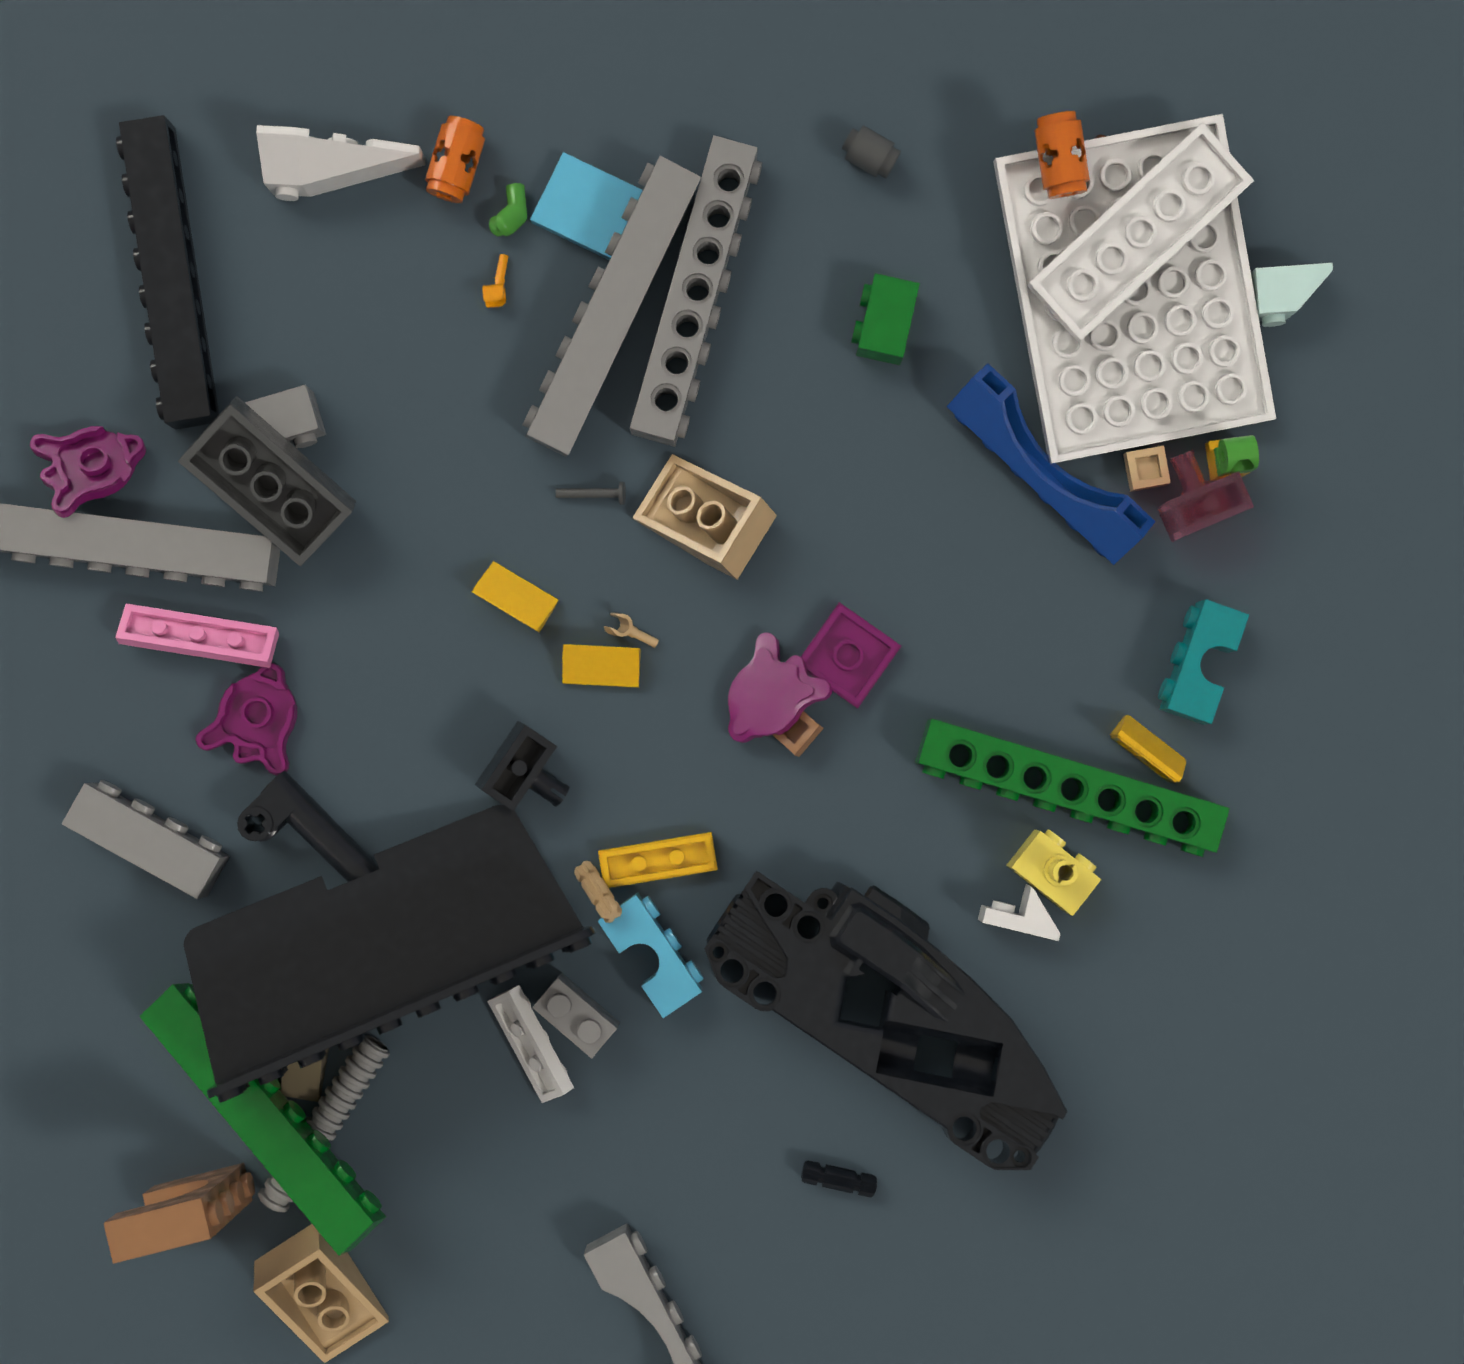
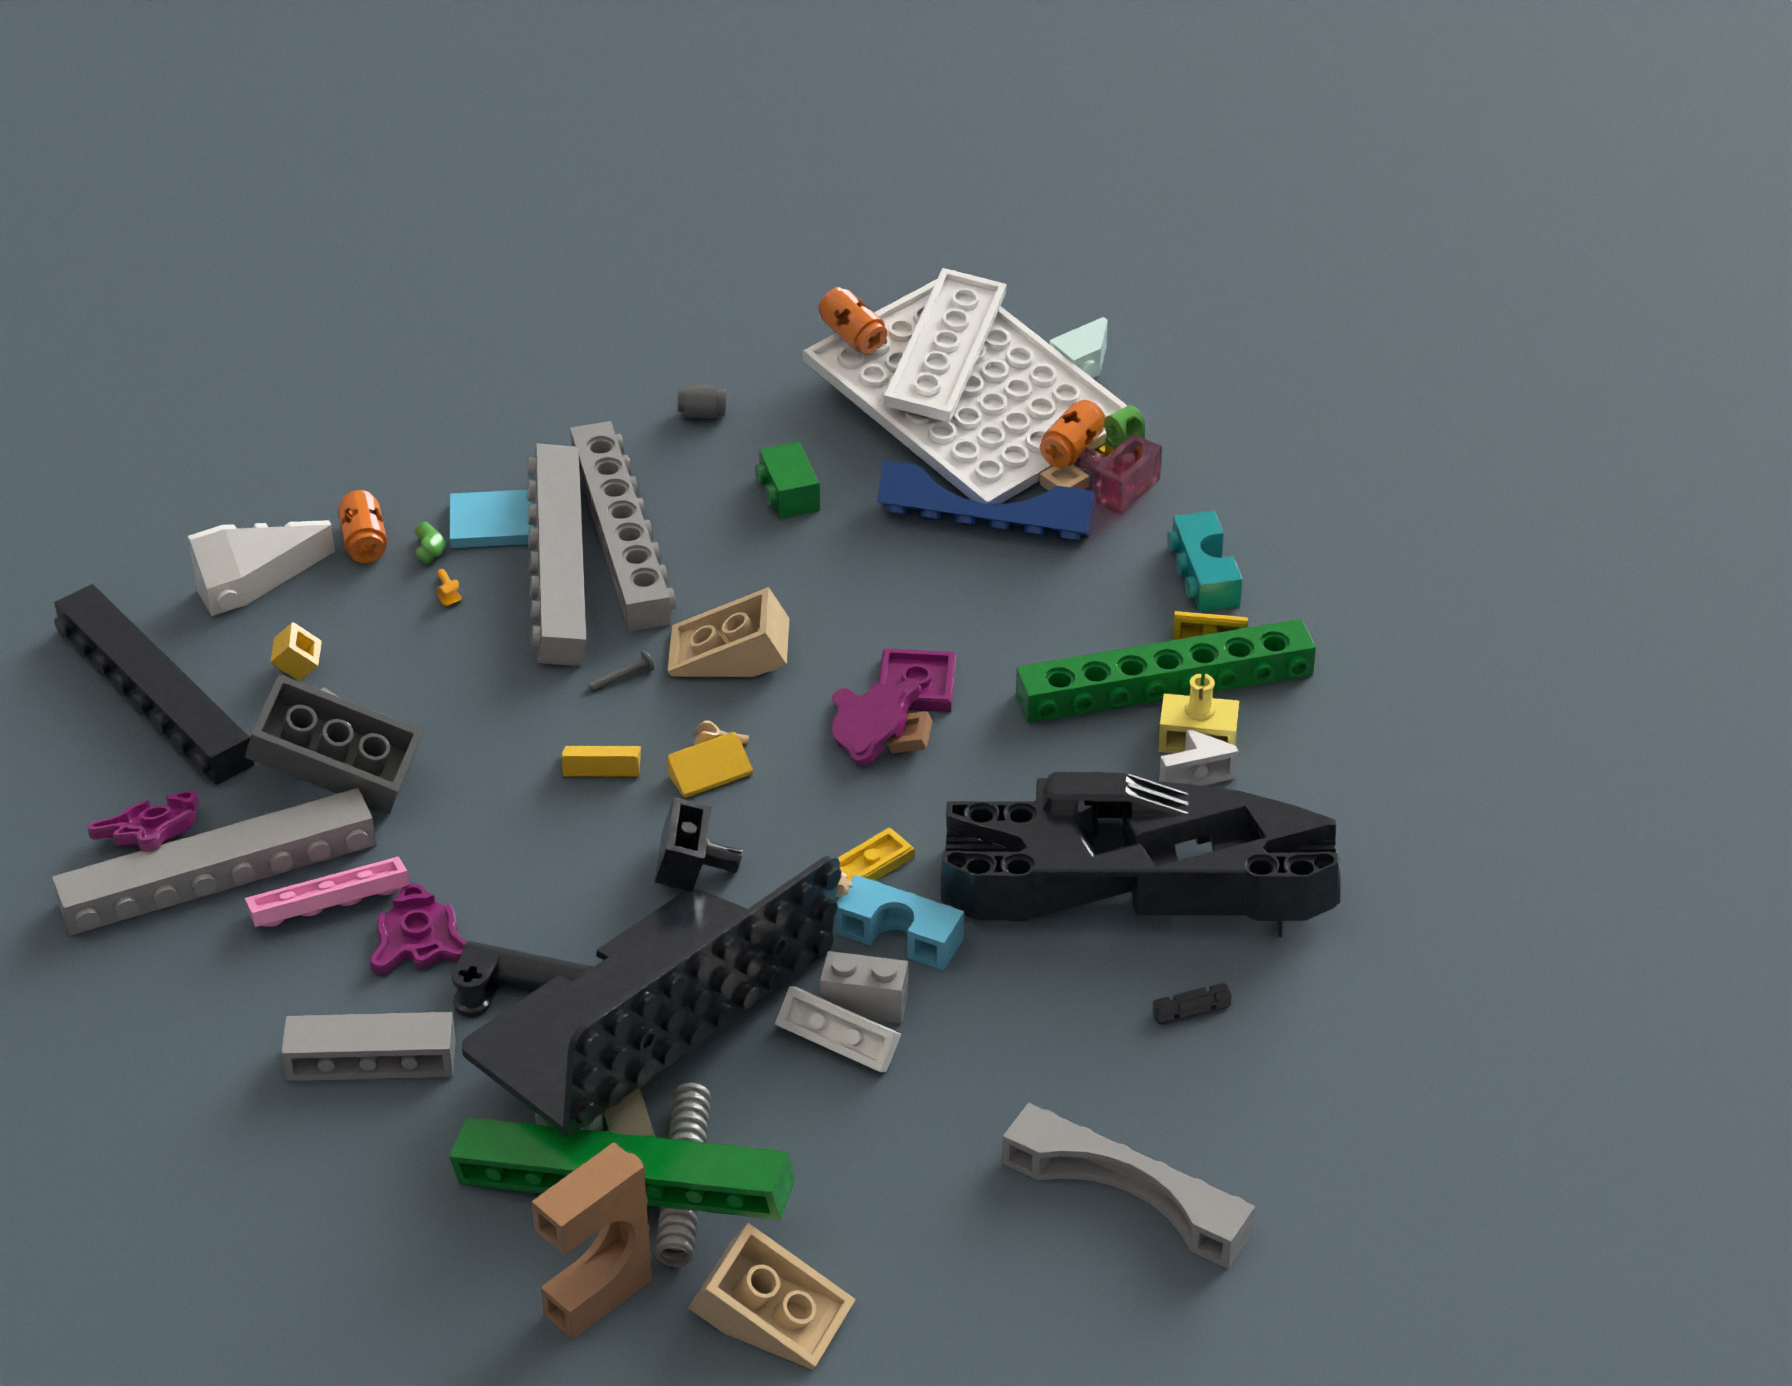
camera: 30 degrees left, 45 degrees down
(310, 308) = (295, 651): none -> yellow plate
(1201, 415) = (1072, 433): none -> orange piece

